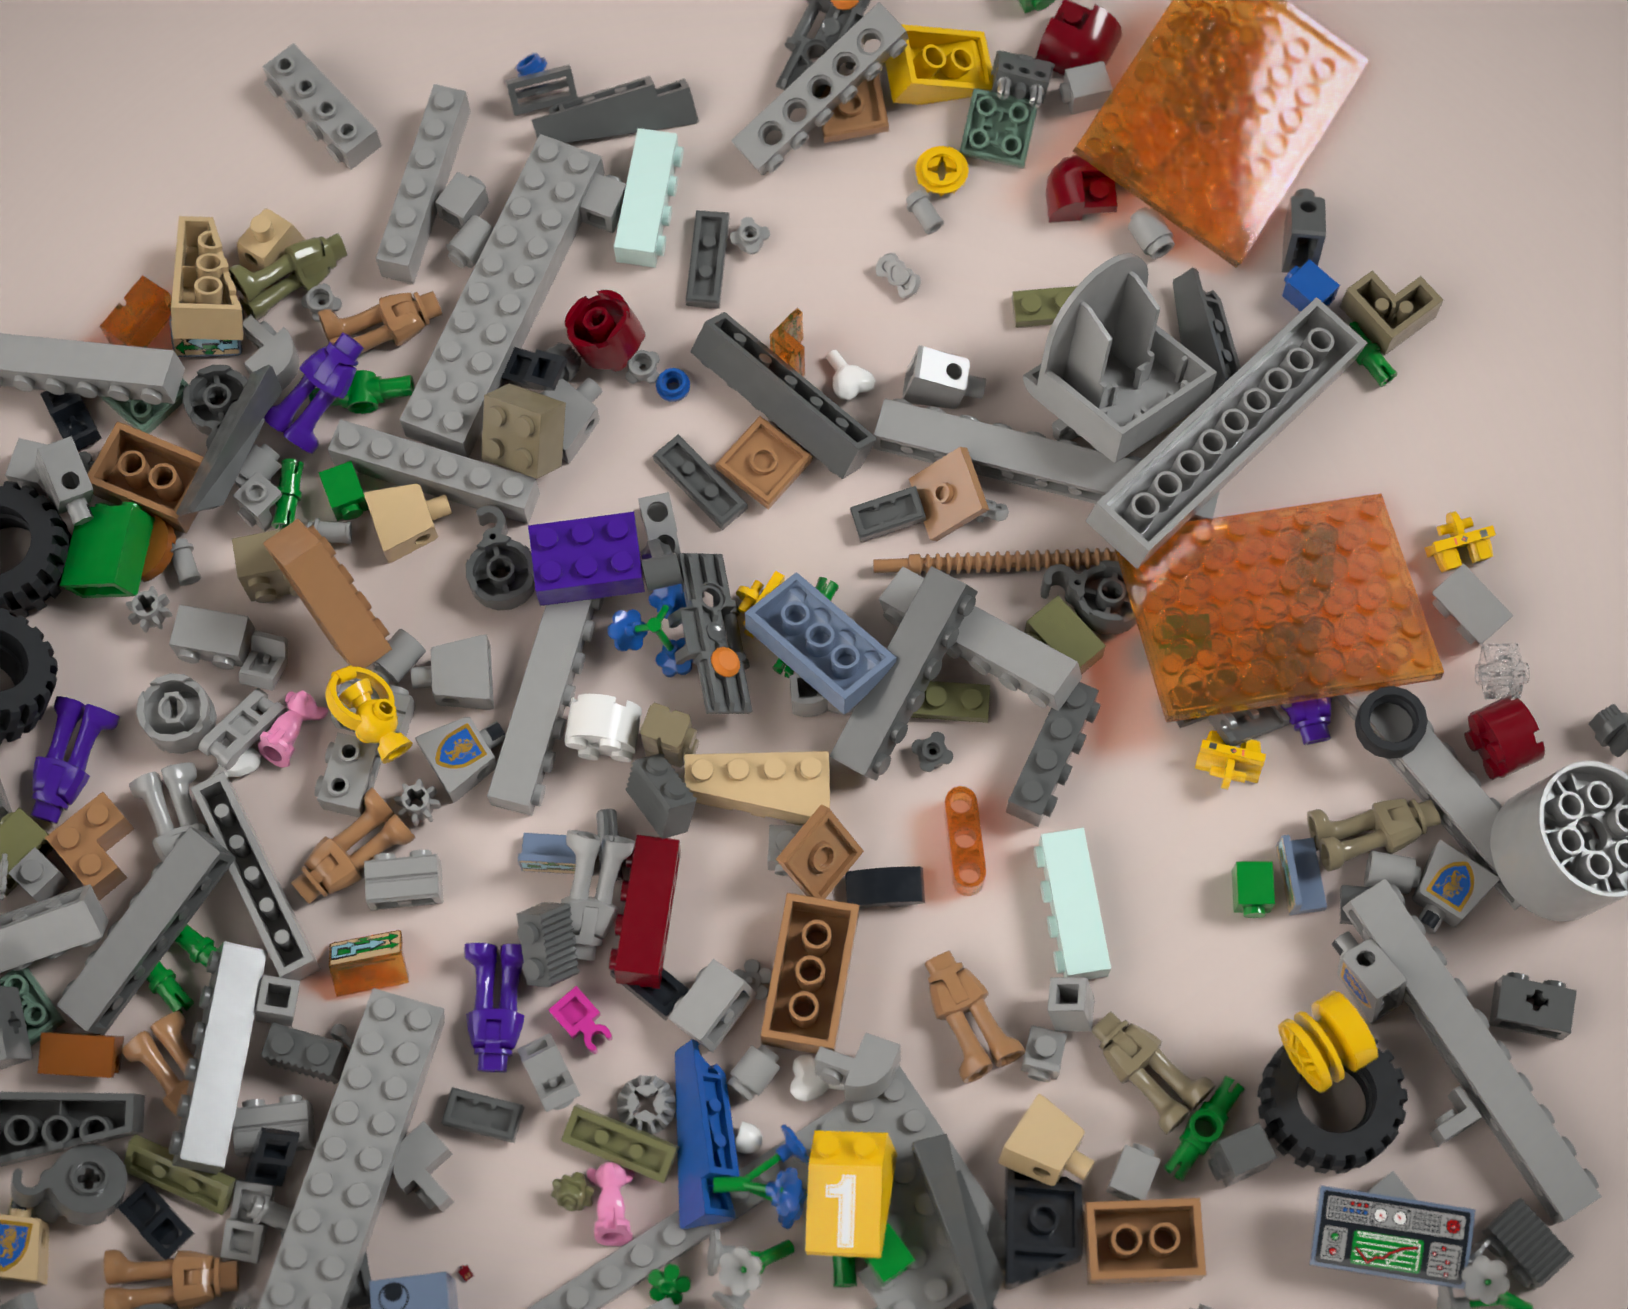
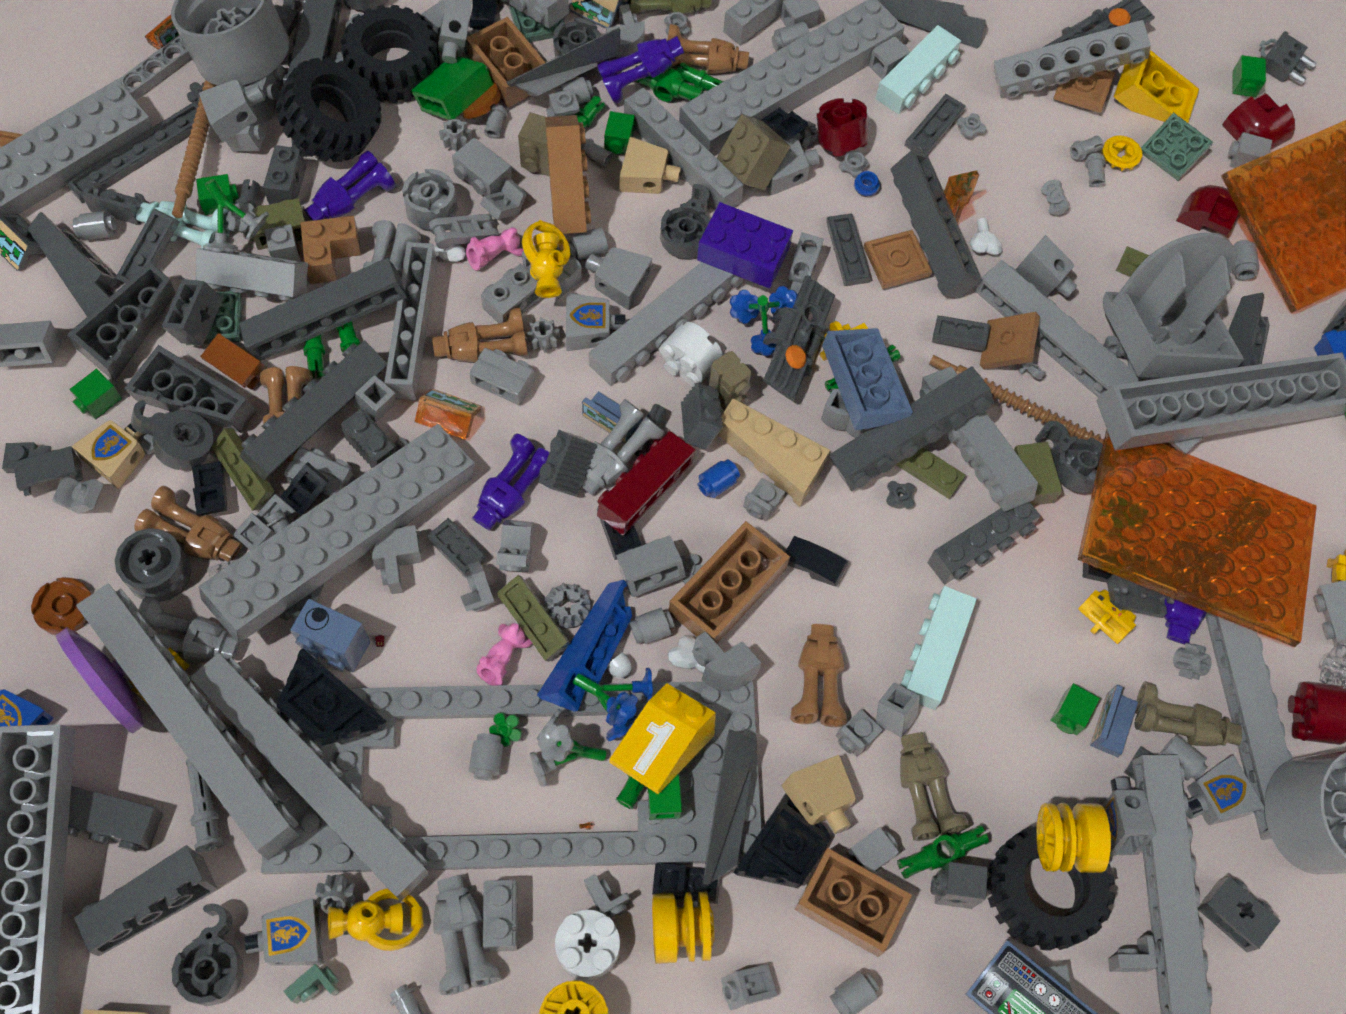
camera: 25 degrees right, 5 degrees down
(395, 360) = (698, 78): none -> green pin
(544, 1152) = (480, 592): none -> light grey bracket
(572, 1192) = (481, 630): olive plant -> none
(577, 1016) = (559, 522): dark pink plate -> none
(660, 566) = (789, 276): dark grey piece -> none
(722, 856) = (718, 478): none -> blue brick
(820, 854) = (784, 510): medium nougat plate -> none
(893, 194) = (1081, 149): none -> light grey pin
(967, 824) = (889, 550): clear orange beam -> none
(1021, 77) = (1210, 123): dark grey piece -> none
(1344, 757) = (1192, 661): none -> light grey gear
(1405, 700) = (1254, 637): black tyre -> none

